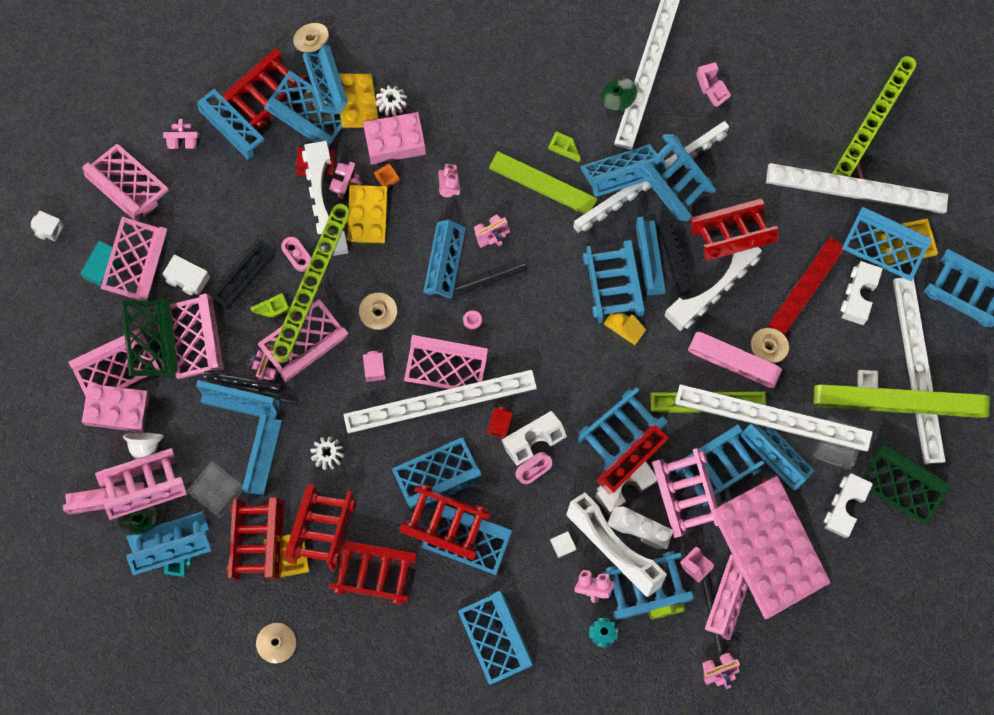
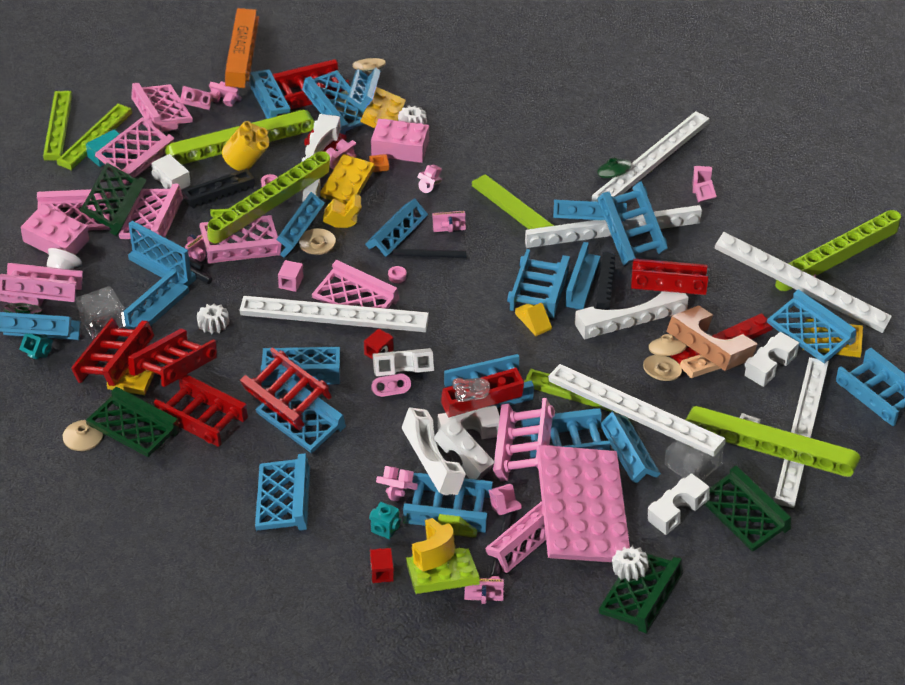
camera: 25 degrees right, 30 degrees down
(30, 248) = (57, 125): none -> lime tile
(46, 226) = (80, 113): white brick -> none
(77, 248) = (78, 151): none -> lime tile
(158, 158) = (196, 98): none -> bright pink hips
(169, 69) = (241, 48): none -> orange brick
(229, 195) = (213, 143): none -> lime beam
(250, 218) = (245, 146): none -> yellow cylinder
(321, 597) = (143, 413): none -> dark green fence
(353, 298) = (299, 222): none -> dark azure fence
(385, 264) = (342, 215): none -> yellow brick
(563, 544) = (386, 449): white tile -> none
(565, 146) = (546, 188): lime tile -> none
(622, 682) = (381, 565): none -> red brick
(632, 465) = (477, 387): none -> clear plate
(671, 660) = (437, 548): none -> yellow arch
(680, 671) = (455, 573): none -> lime plate
(735, 359) = (624, 369): bright pink beam -> none
(762, 320) = (666, 346): none -> tan dish
(777, 294) = (690, 329): none -> nougat arch
(802, 326) = (697, 366): none -> light nougat plate
(836, 587) = (630, 563): none -> white gear
(868, 617) = (656, 599): none -> dark green fence

